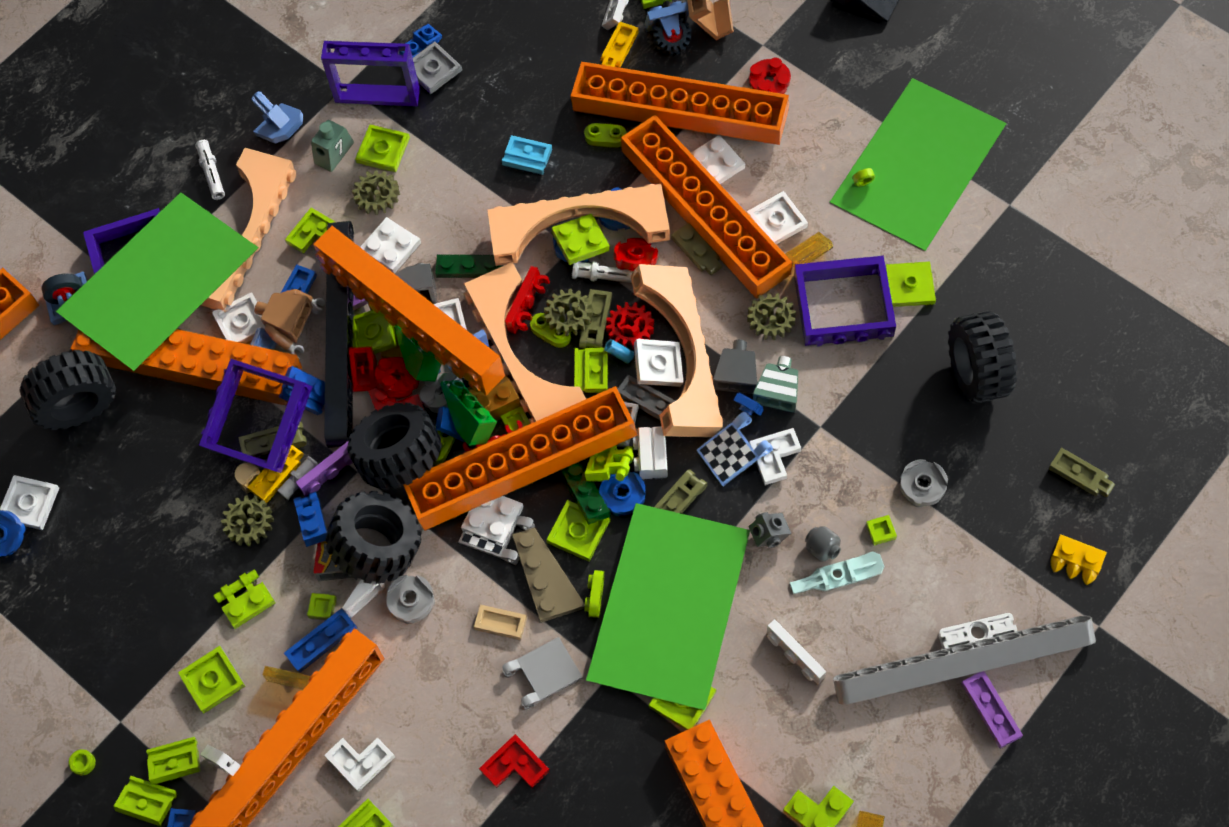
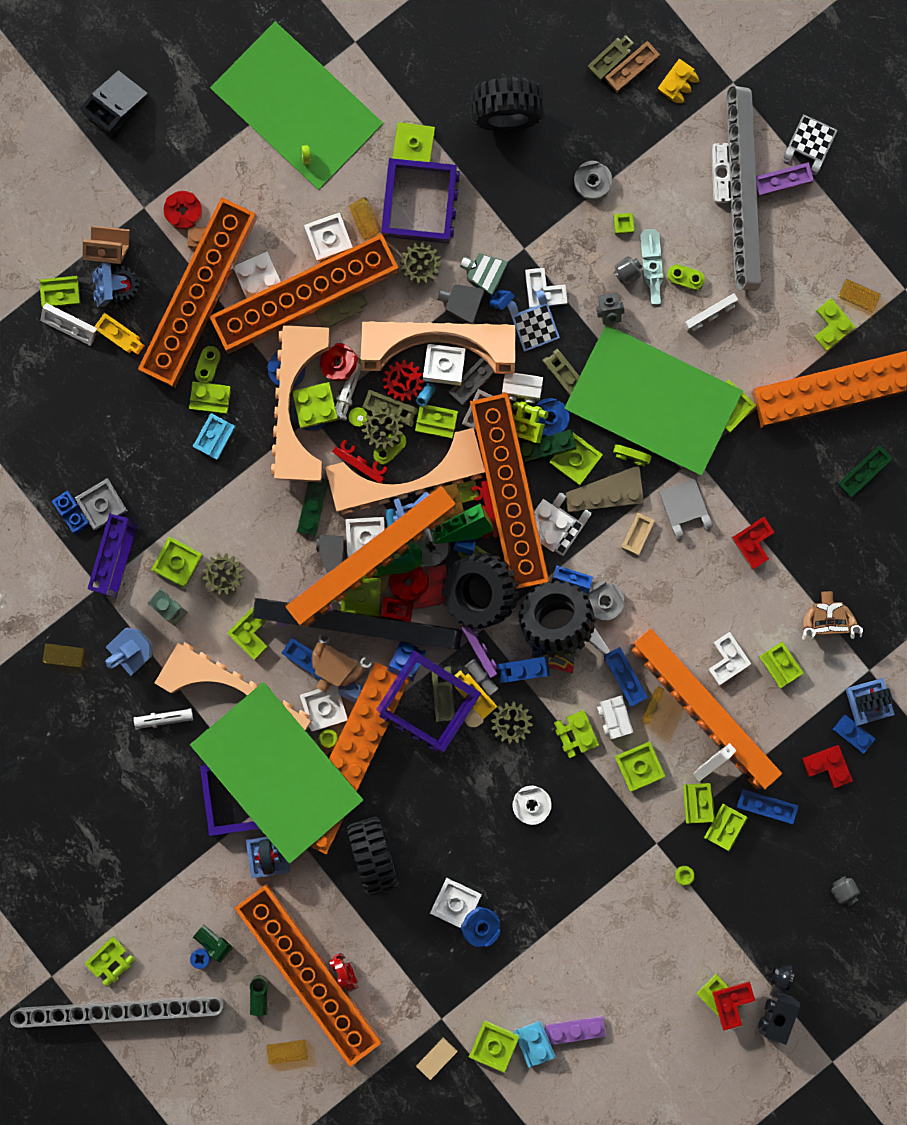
camera: 85 degrees left, 20 degrees up
(161, 572) = (541, 810): none -> white plate
(208, 329) = (328, 738): none -> lime tile
(267, 68) = (63, 655): none -> clear yellow tile
(268, 637) = (615, 717): none -> white brick
(321, 606) = (595, 672): lime tile -> none
(391, 244) = (276, 570): white plate -> none
(430, 555) = (575, 578): none -> blue plate
(569, 144) = (210, 397): none -> lime plate
(580, 285) = (357, 417): none -> lime tile
(834, 614) = (685, 278): none -> lime plate
(1053, 736) = (812, 141): none -> flag
(1077, 499) = (632, 66): none -> medium nougat plate

